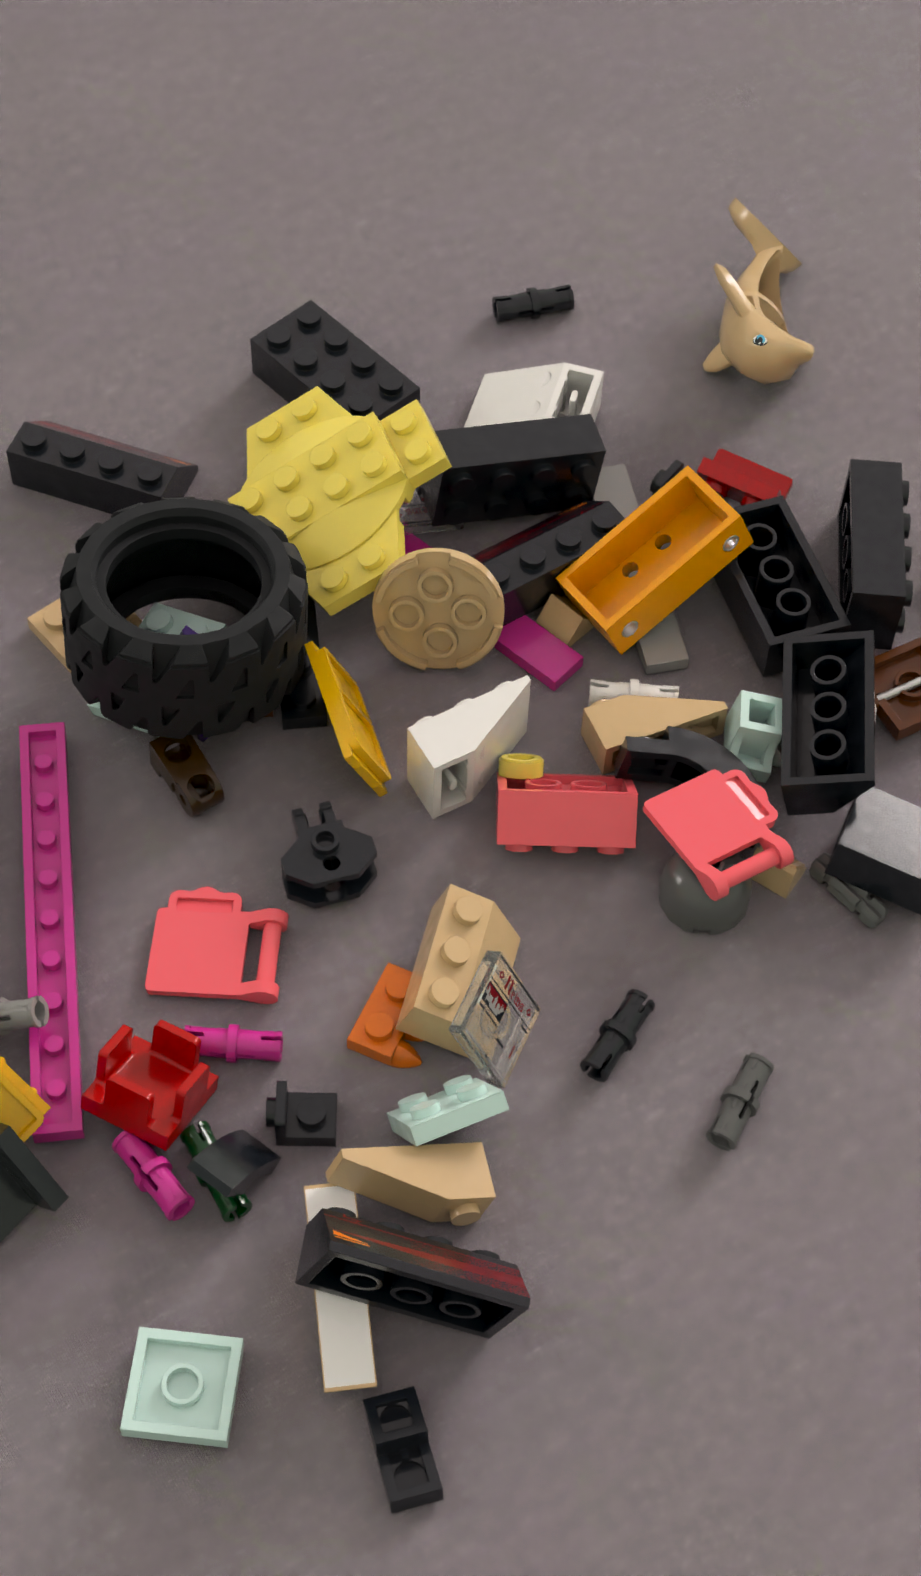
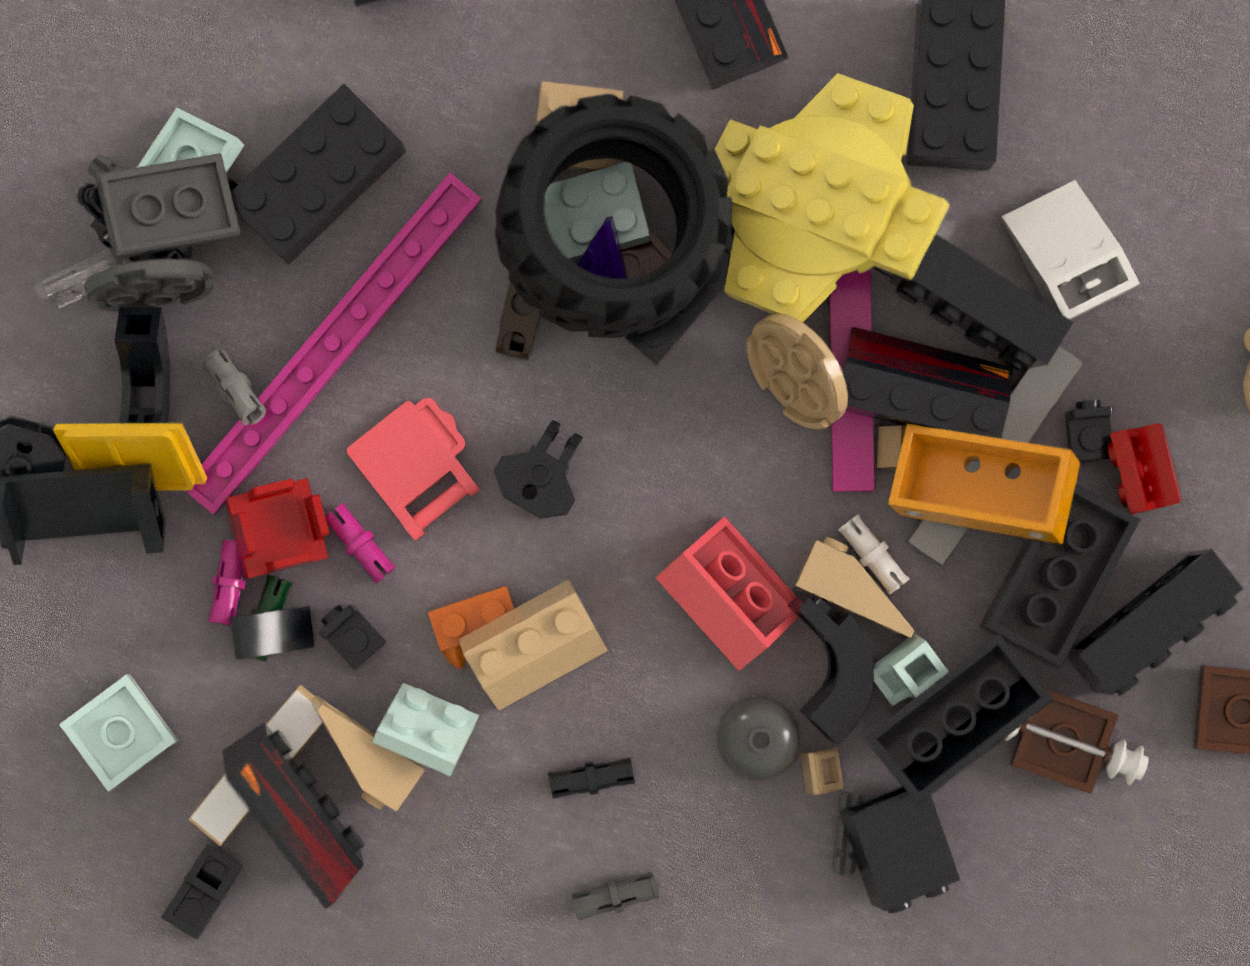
camera: 50 degrees right, 30 degrees up
(349, 718) = (657, 389): yellow piece -> none
(461, 748) = (700, 491): white slope -> none
(495, 1019) = (518, 699): clear tile -> none
(521, 766) = (737, 533): light yellow tile -> none
(533, 303) = (1185, 148): black pin -> none
(716, 819) = (794, 714): coral piece -> none

